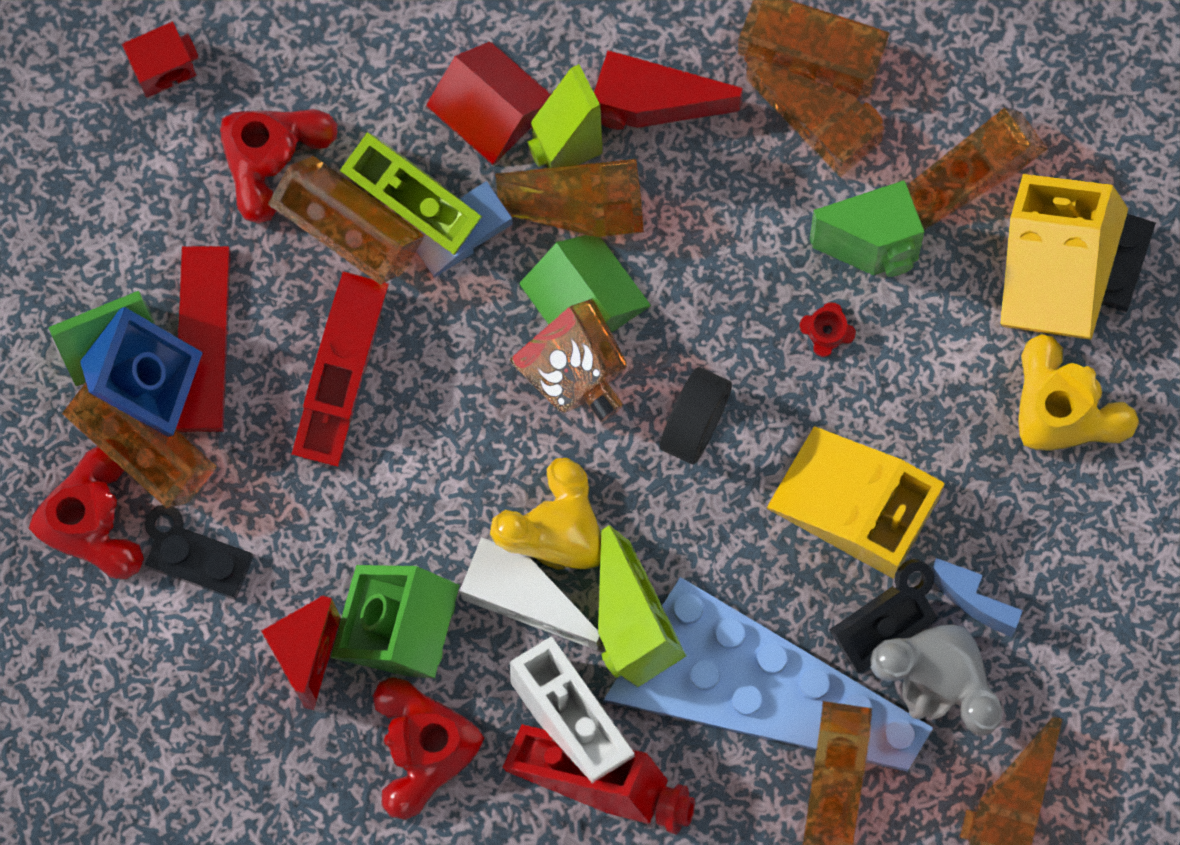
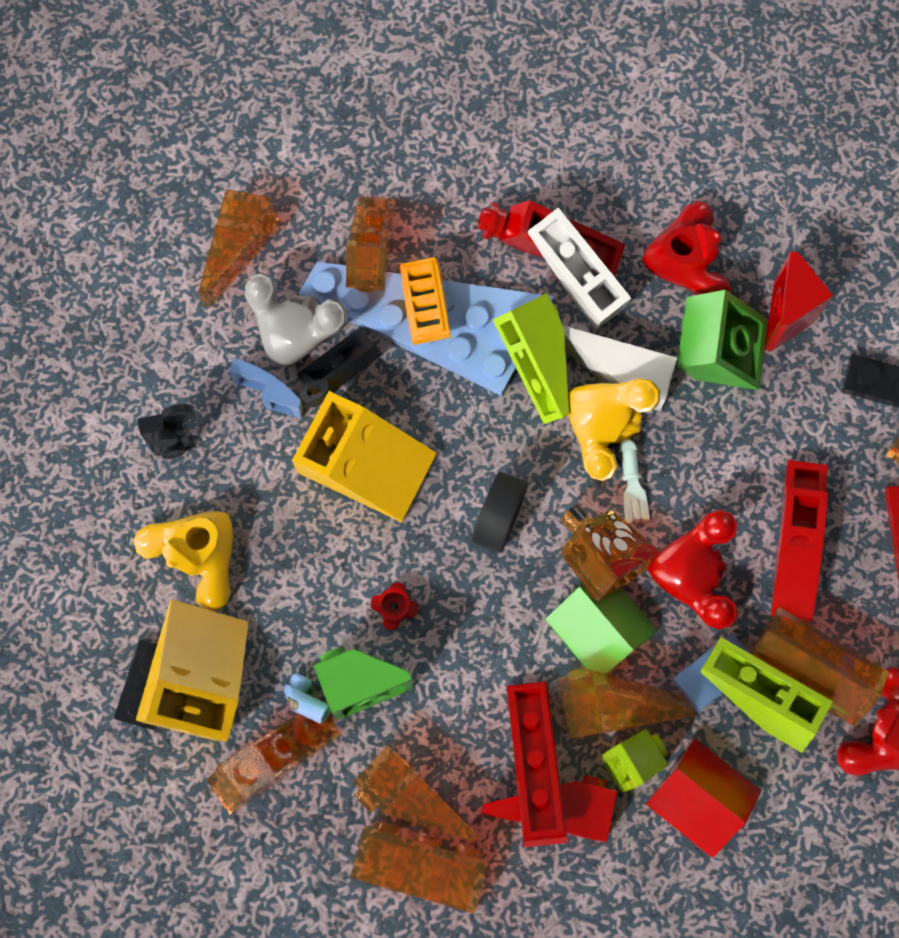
camera: 170 degrees right, 0 degrees up
(472, 340) = (694, 568): none -> red head
(529, 441) = (634, 496): none -> light aqua piece
(678, 136) = (536, 765): none -> red tile
(751, 687) = (420, 277): none -> light orange slope
(941, 229) = (303, 703): none -> light blue arm
(1099, 534) = (167, 431): none -> black hinge

